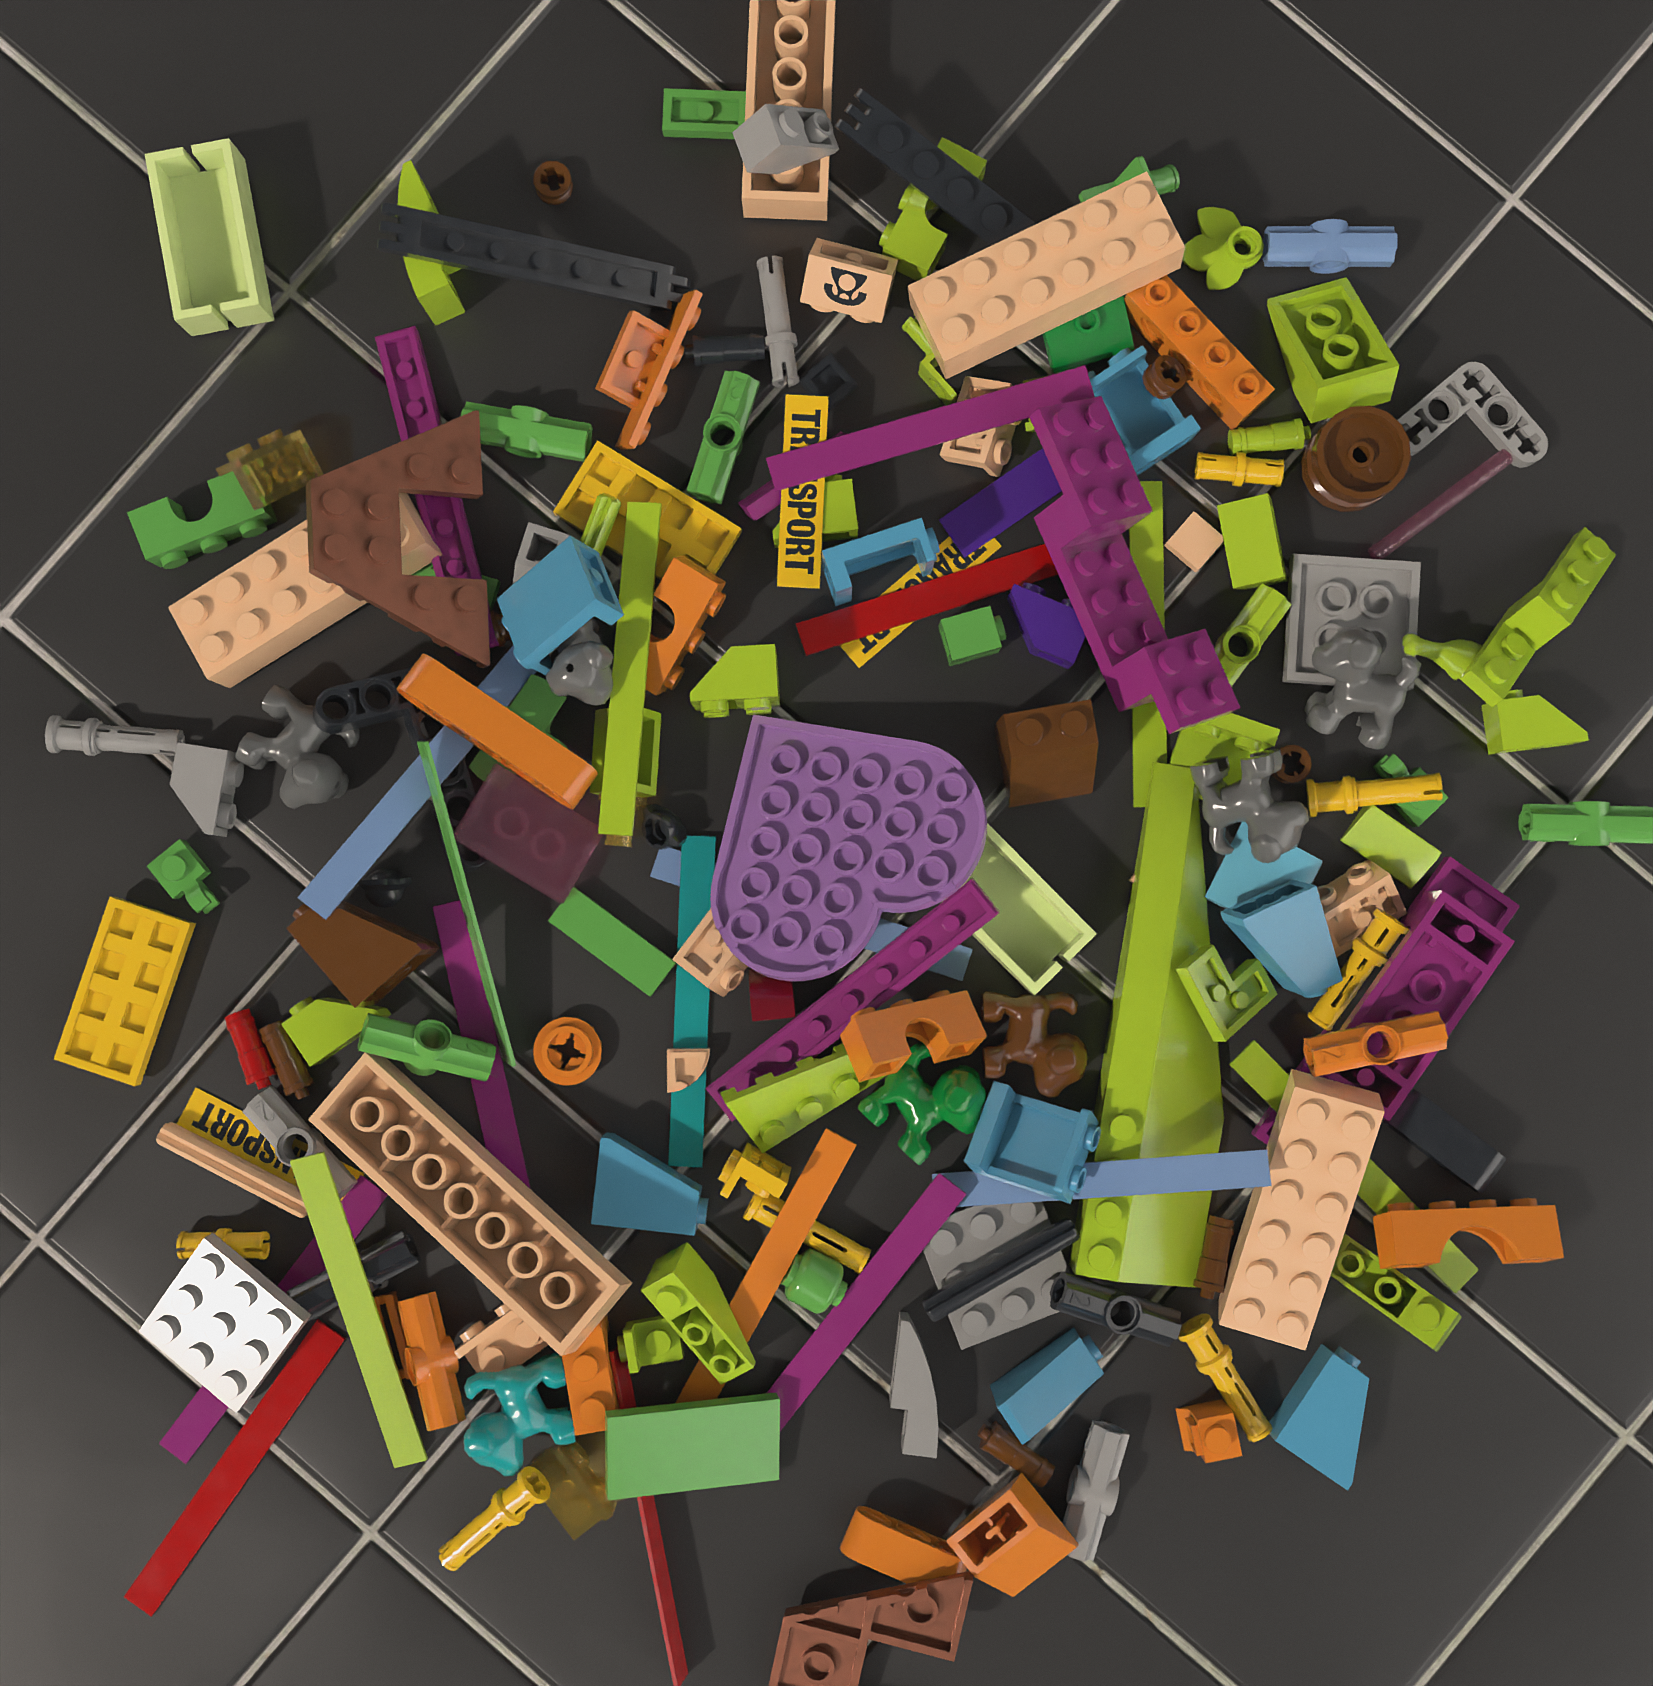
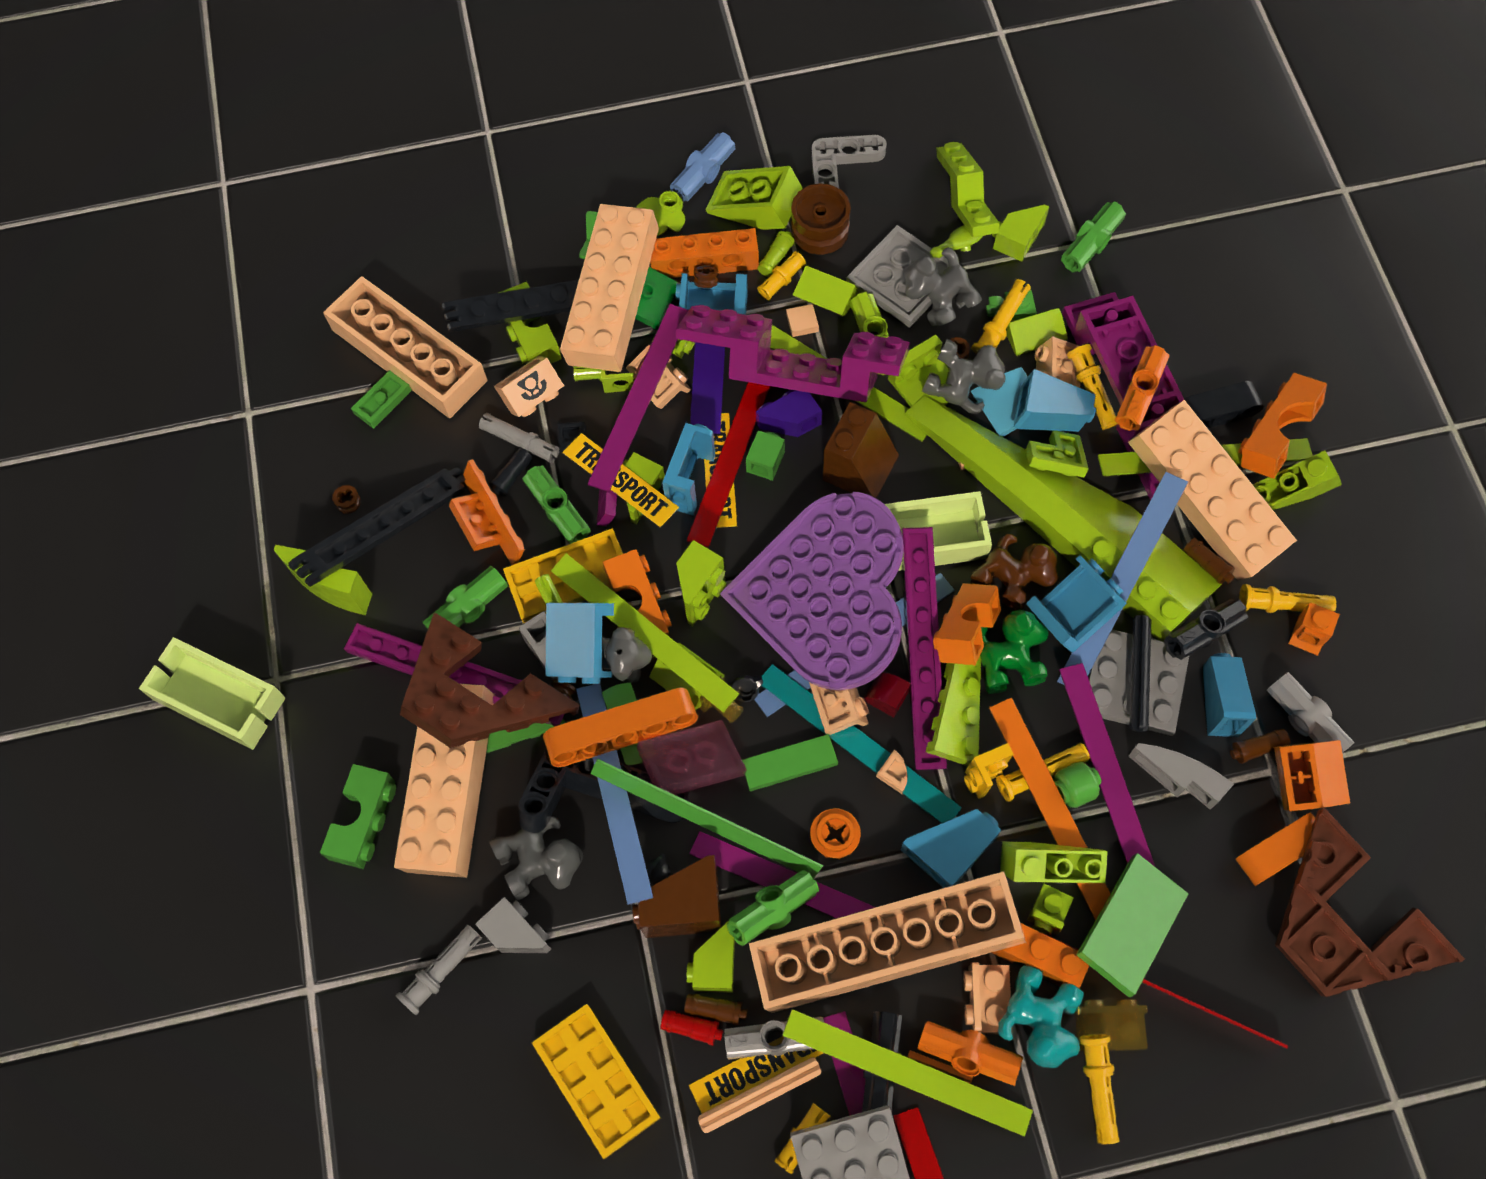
camera: 50 degrees left, 20 degrees down
(182, 874) = (550, 990): bright green plate -> none
(274, 468) = (366, 749): clear yellow bracket -> none
(784, 138) = (433, 357): light grey slope -> none
(1325, 1414) = (1343, 563): dark azure slope -> none
(1440, 505) = (874, 201): clear pink bar -> none

